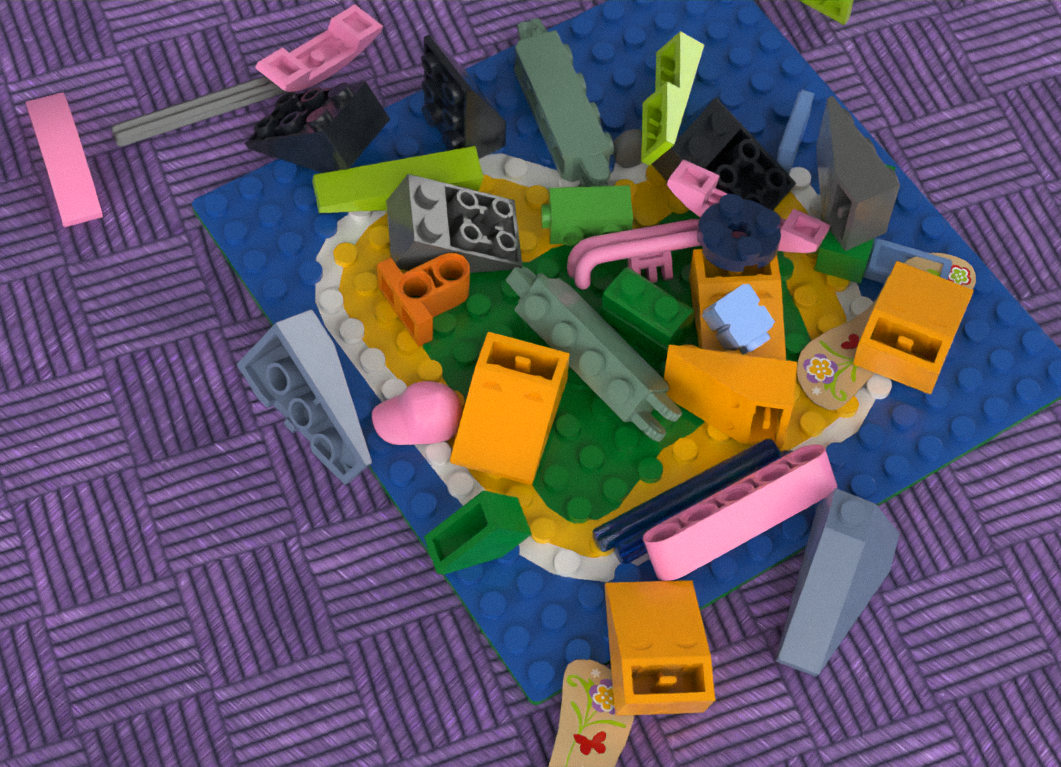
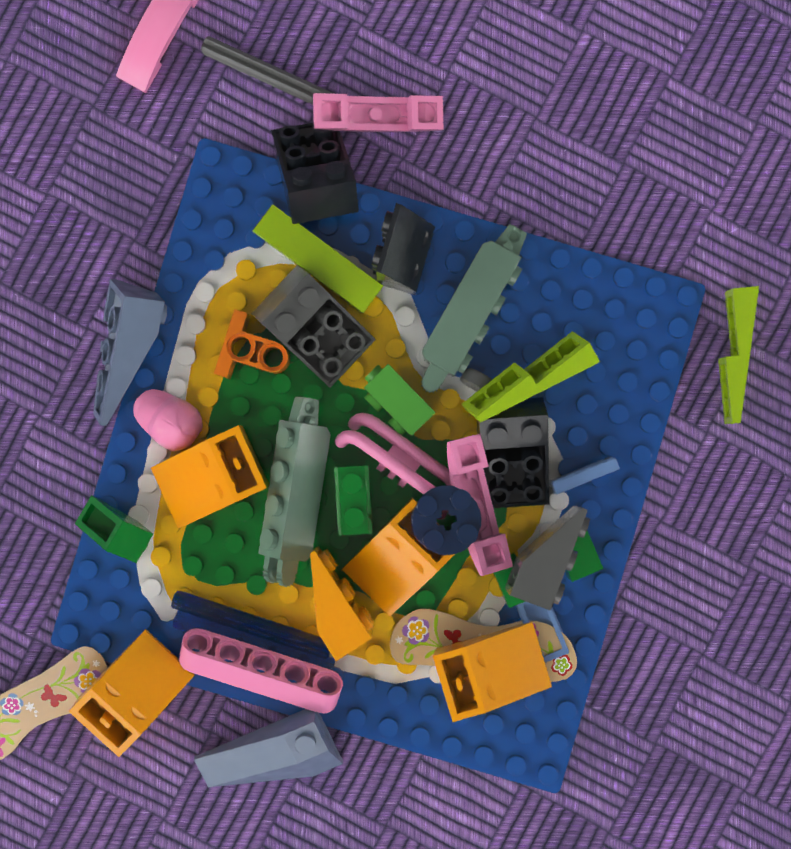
camera: 55 degrees right, 30 degrees up
(739, 320) = (374, 575): light blue brick -> none

